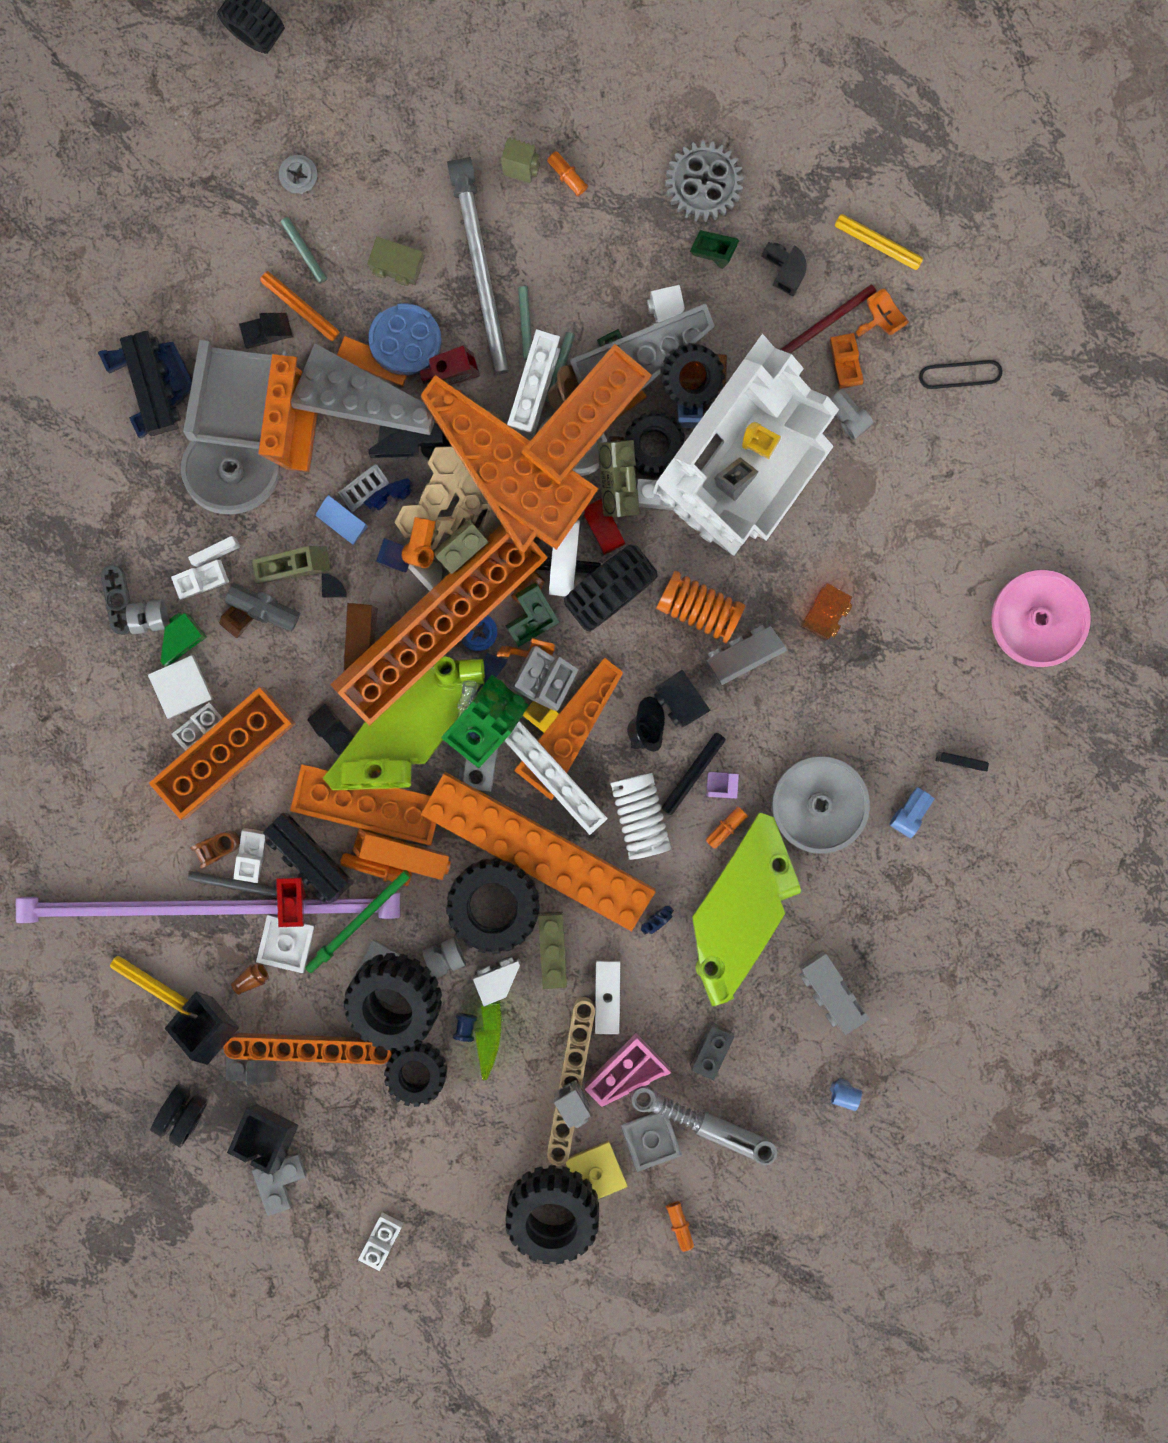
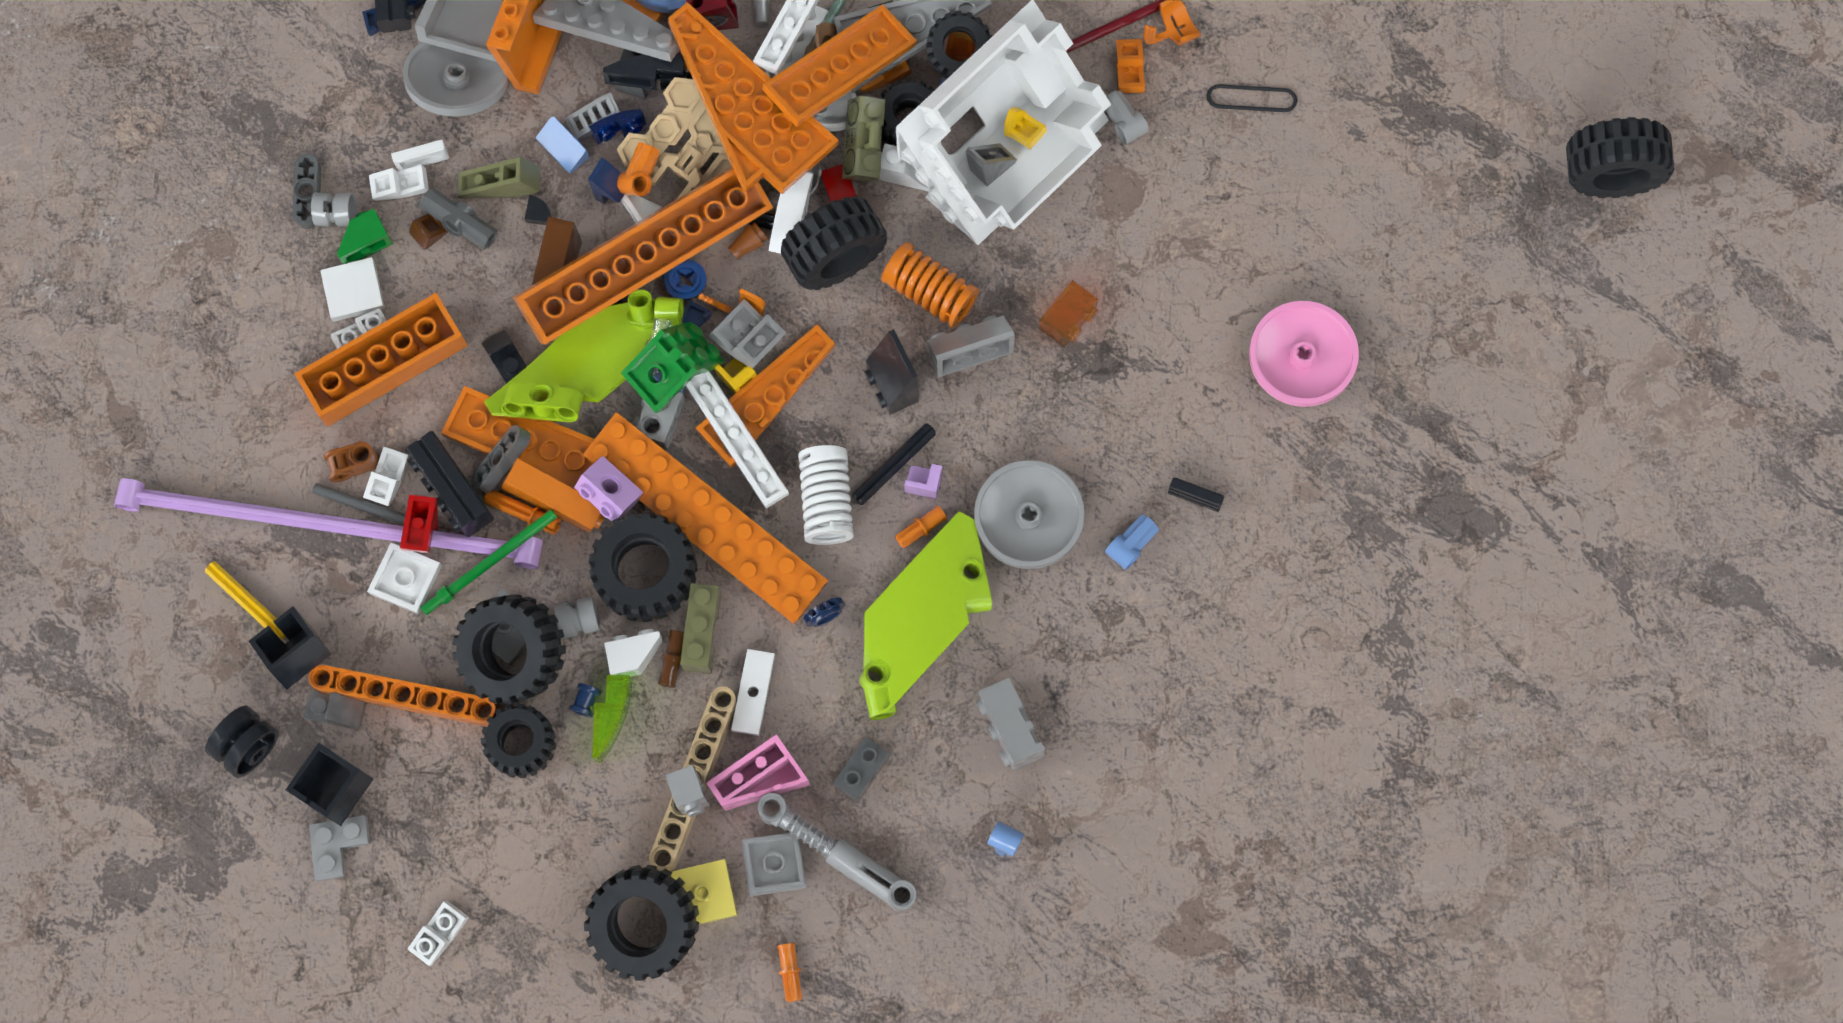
camera: 10 degrees right, 15 degrees down
(251, 978) = (357, 608): dark orange cone -> none
(358, 818) = (500, 459): none -> dark grey beam
(460, 546) = (681, 179): olive brick -> none
(463, 844) = (605, 476): none -> lavender brick
(532, 978) = (671, 659): none -> reddish brown pin
(536, 620) = (753, 268): dark green plate -> none
(647, 726) = (851, 401): black piece -> none

